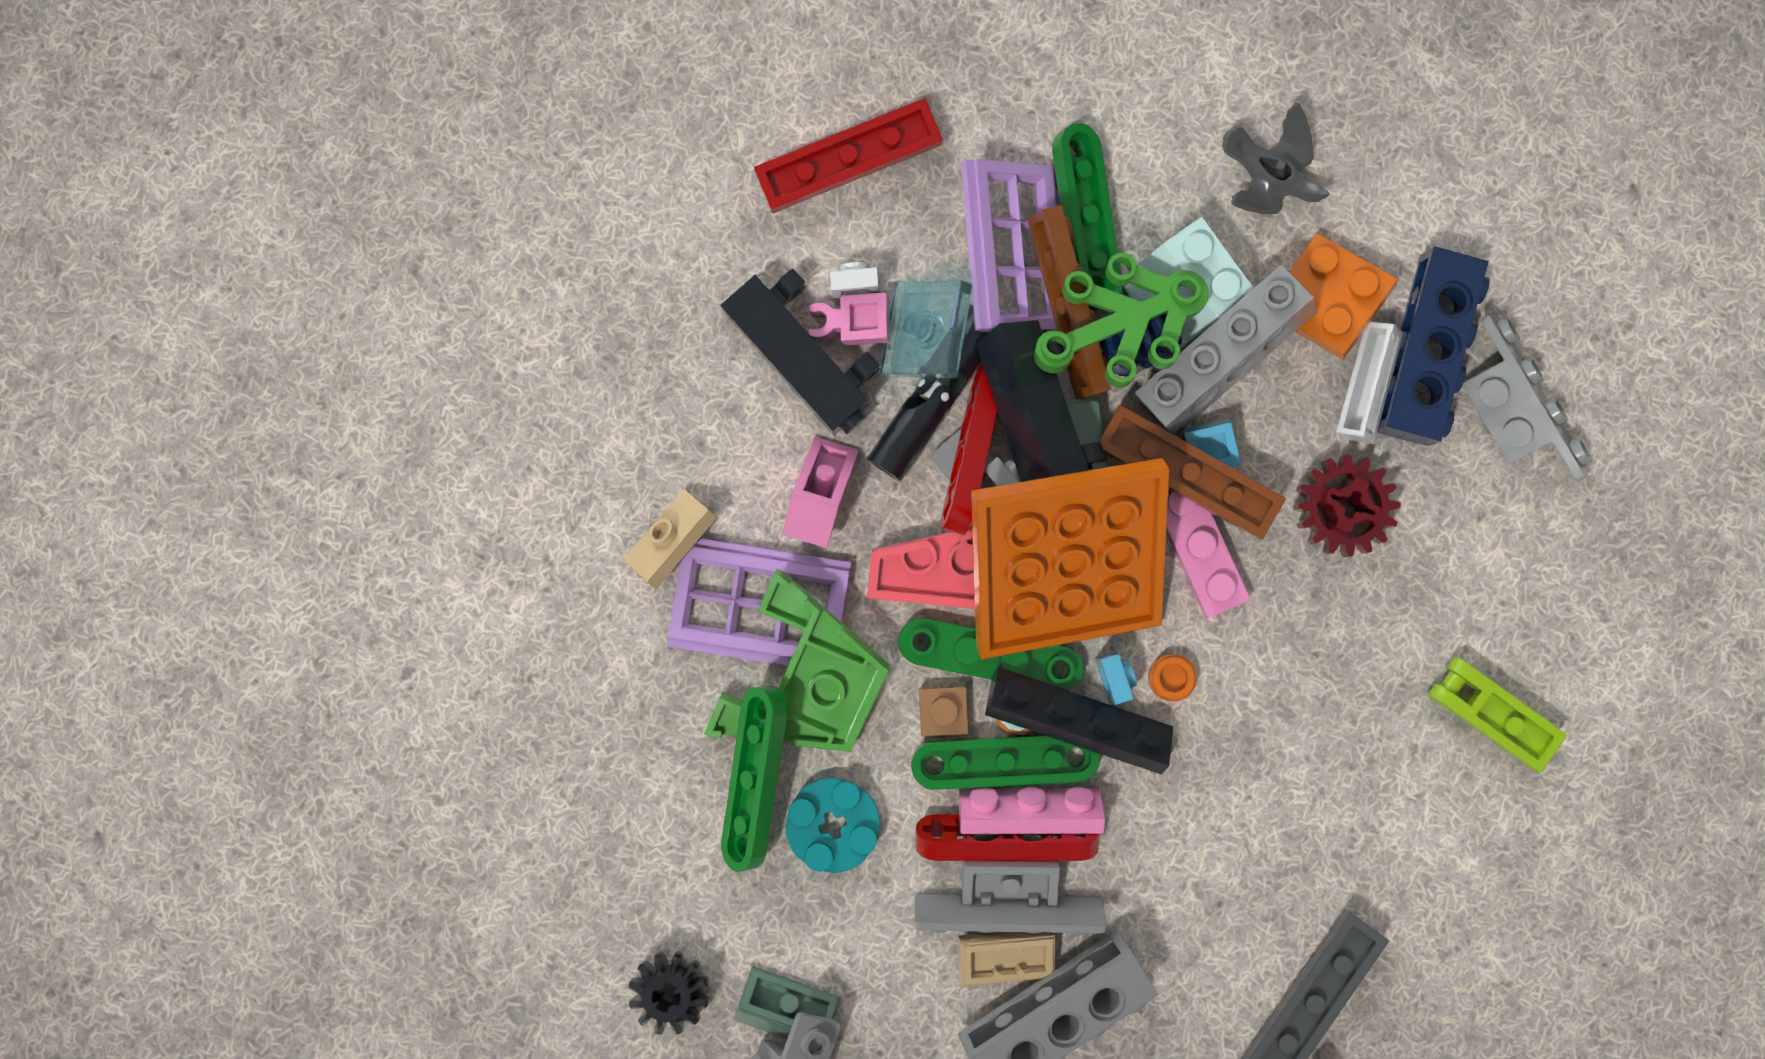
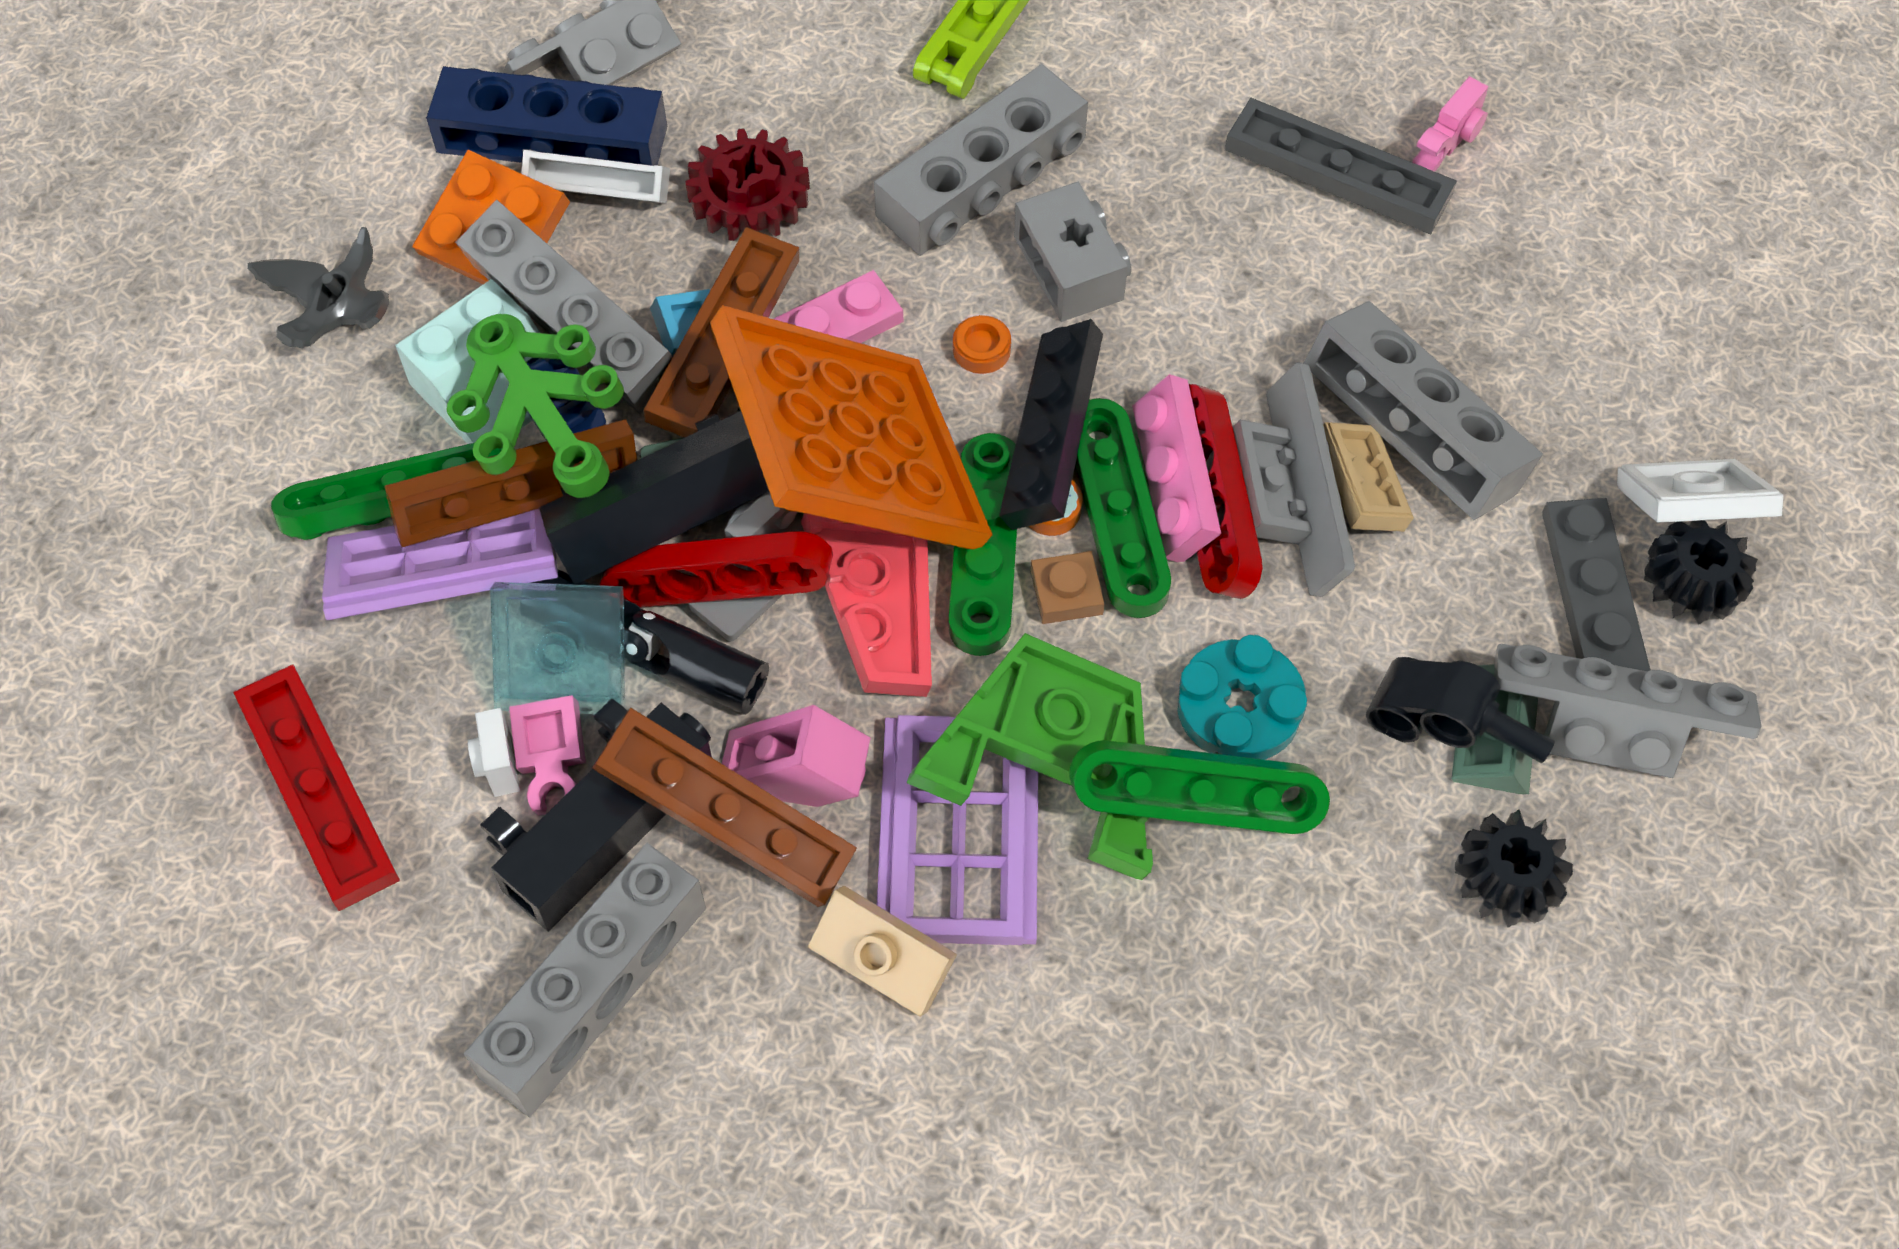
camera: 95 degrees left, 25 degrees down
(672, 336) = (586, 980): none -> light grey brick
(778, 437) = (724, 807): none -> dark orange plate
(792, 974) = (1451, 704): none -> black beam
(1116, 677) = (992, 395): medium azure plate -> none
(1221, 756) = (1071, 251): none -> light grey brick
(1401, 755) = (981, 160): none -> light grey brick

